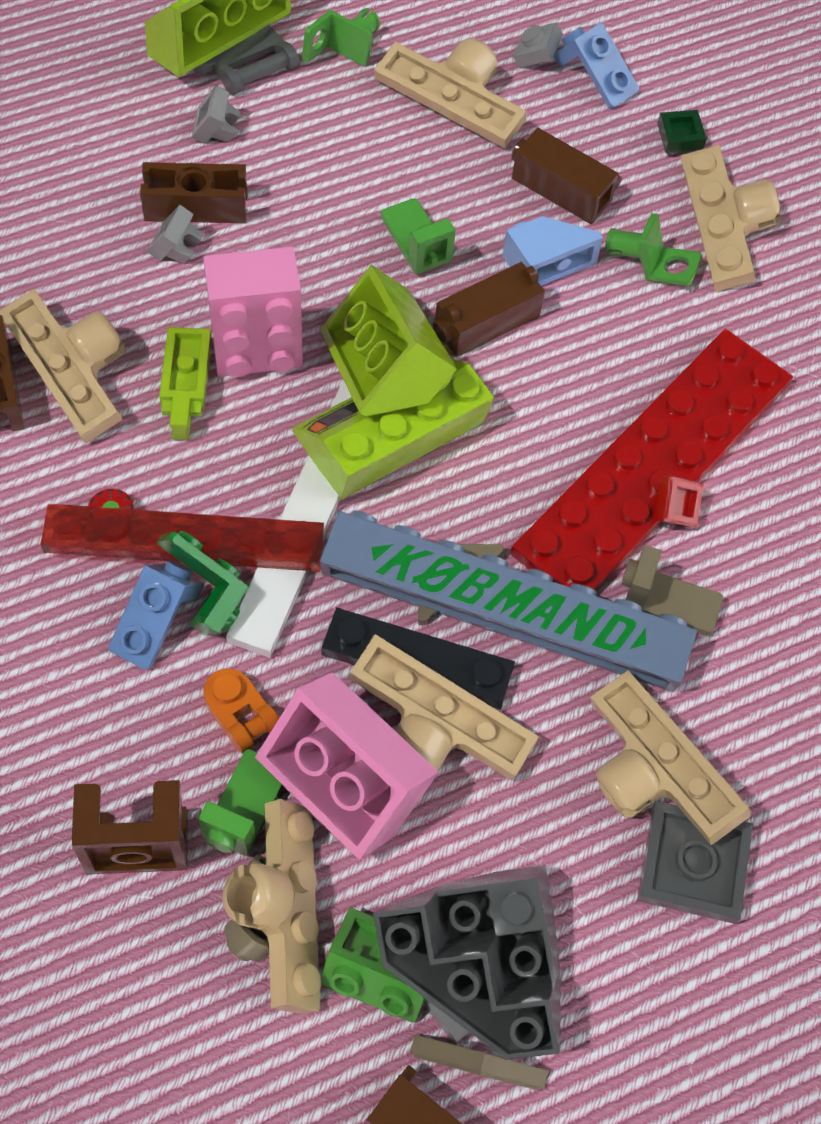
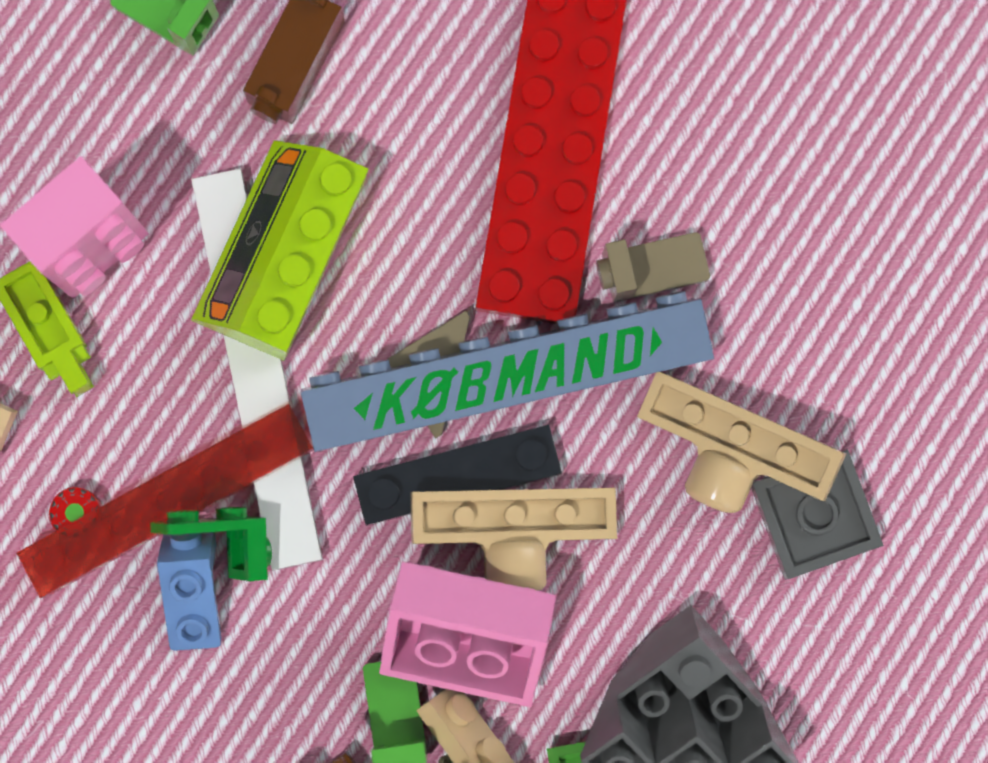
camera: 30 degrees left, 20 degrees up
(231, 695) = (312, 621): orange plate -> none
(386, 346) = (228, 181): lime slope -> none
(678, 501) = (604, 161): tile -> none

